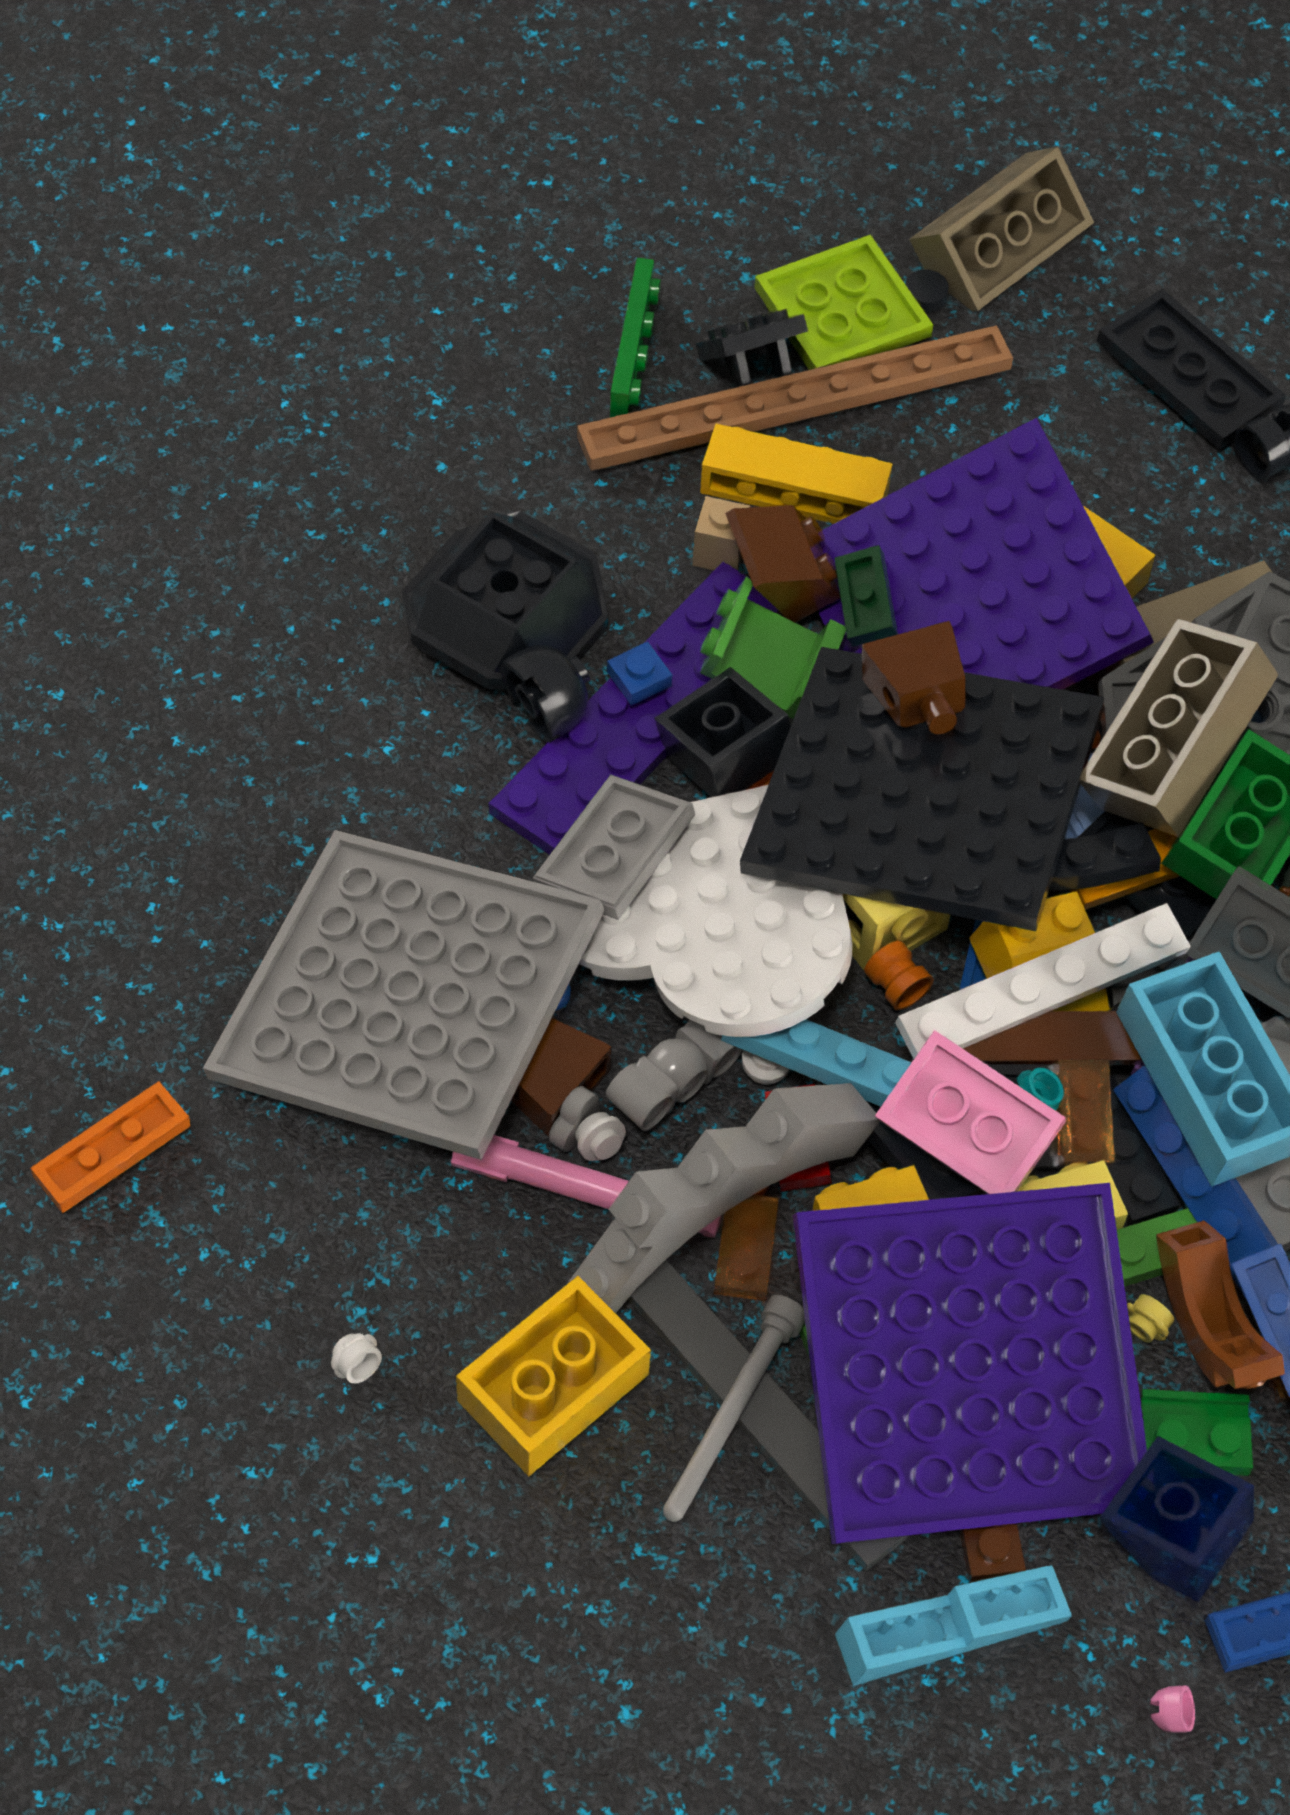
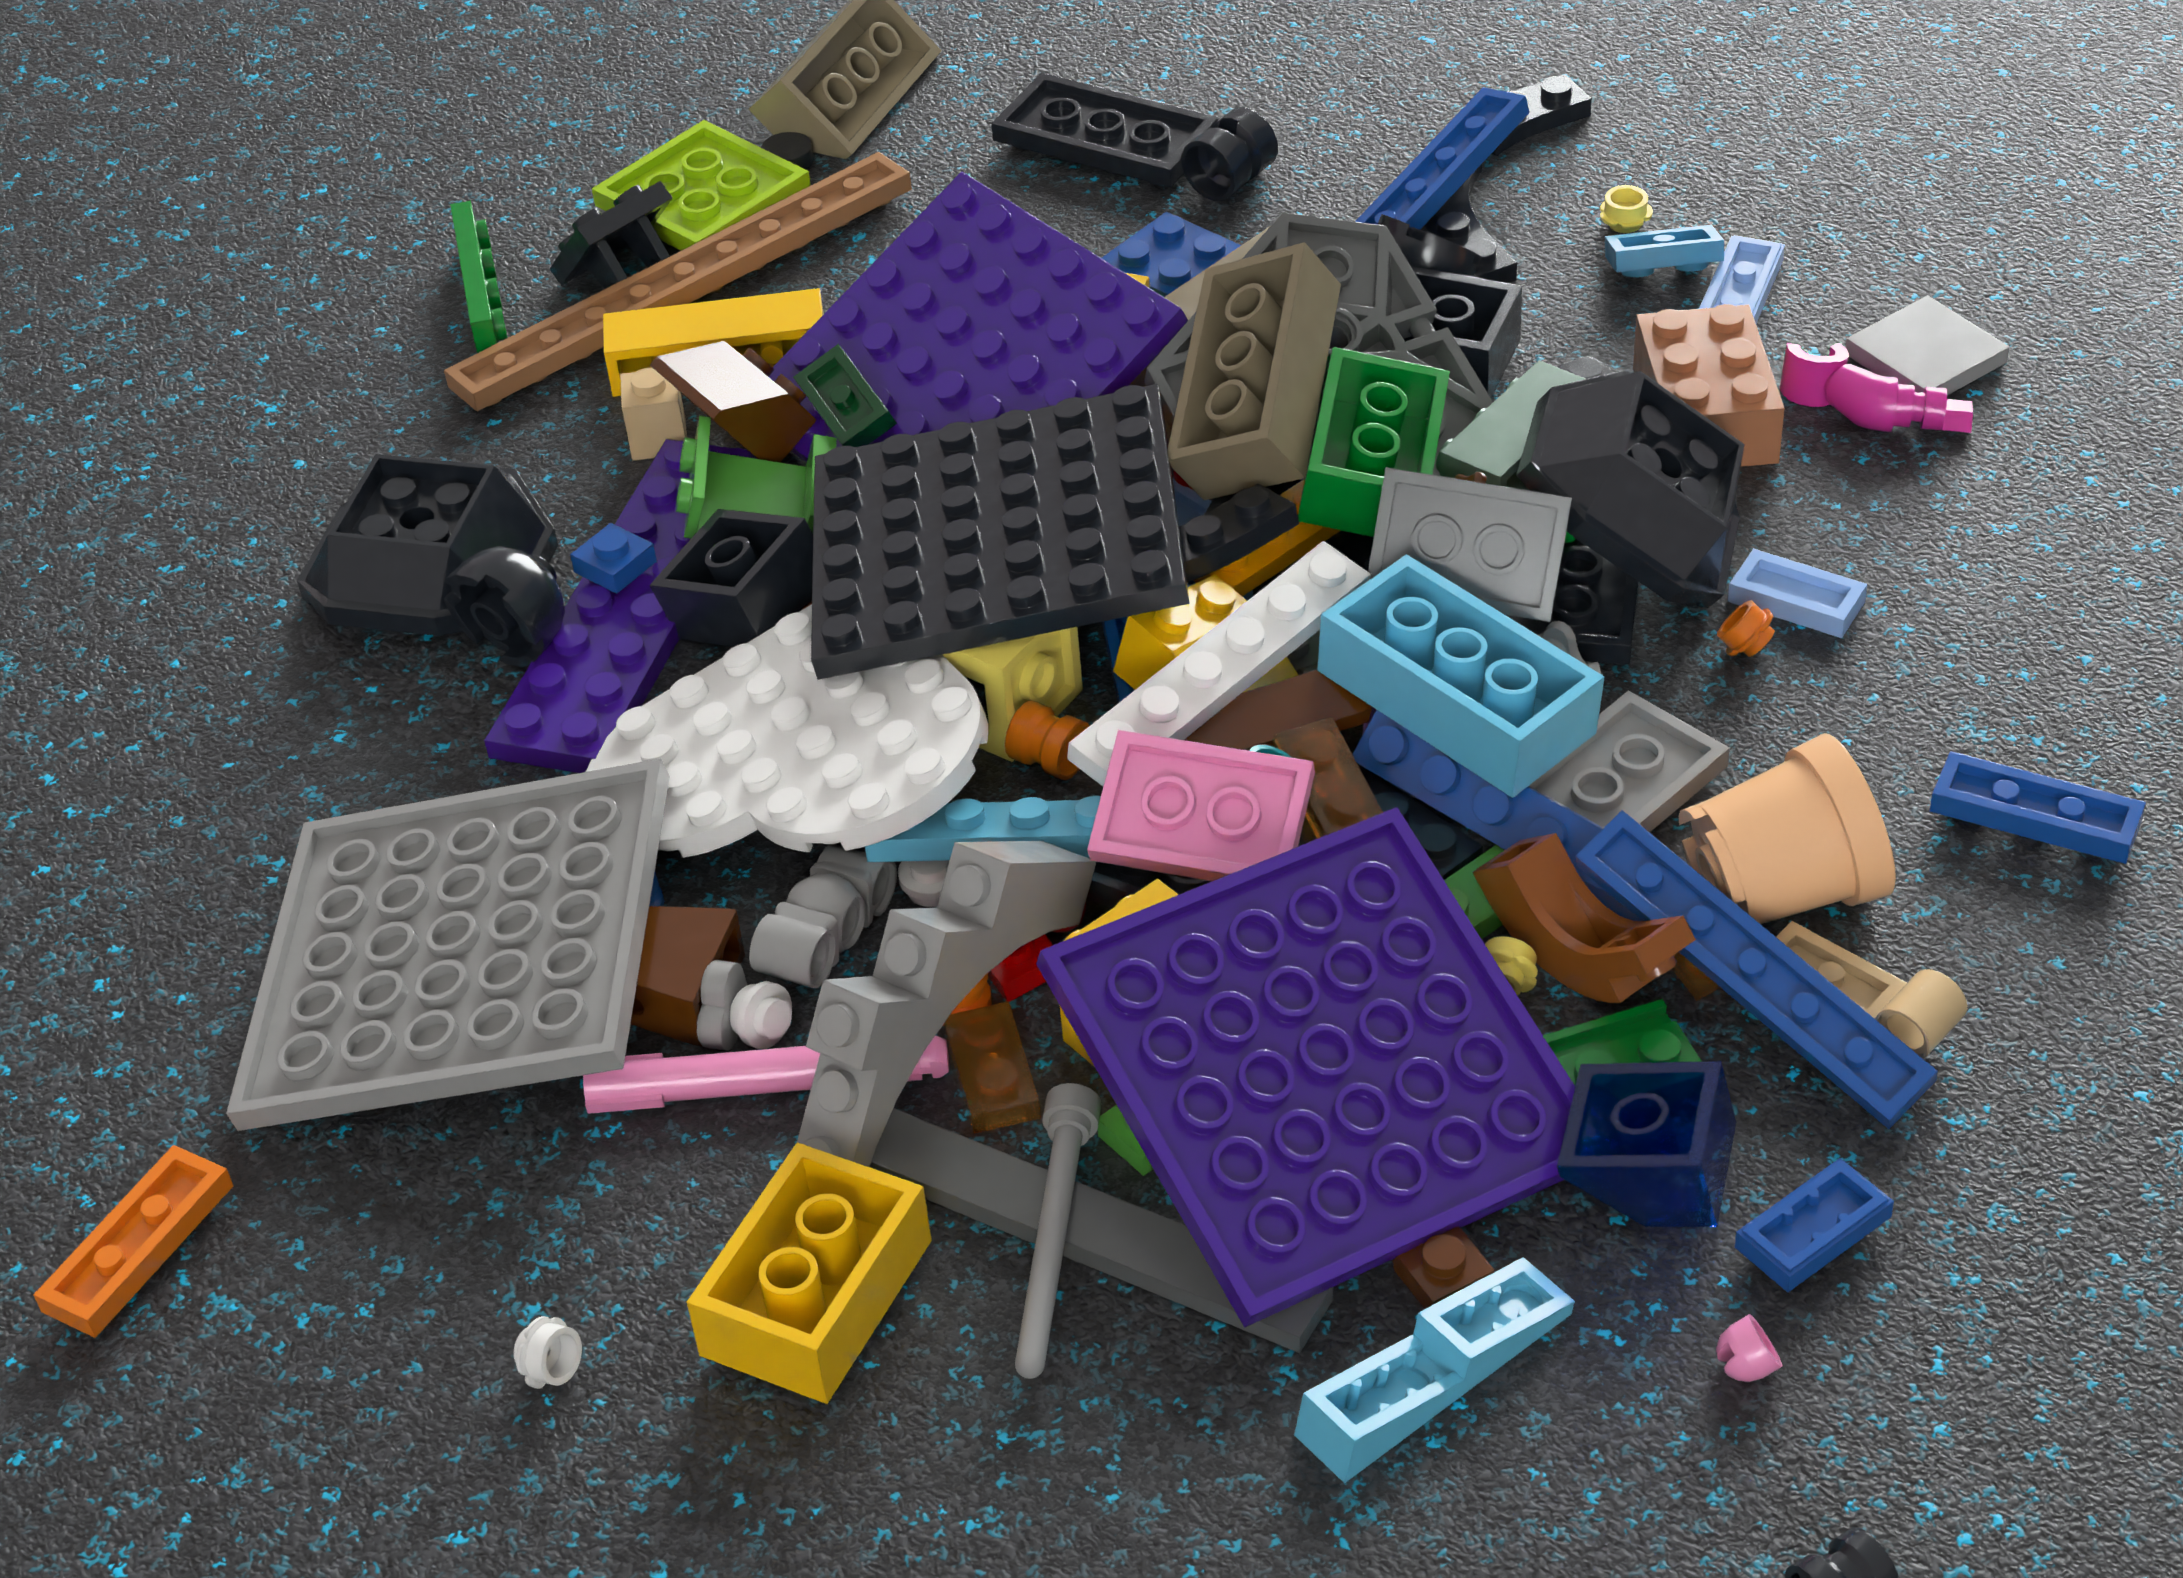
camera: 15 degrees left, 15 degrees down
(616, 843) = (659, 709): light grey tile -> none
(917, 676) = (937, 423): reddish brown torso -> none
(1187, 532) = (1169, 252): none -> blue plate

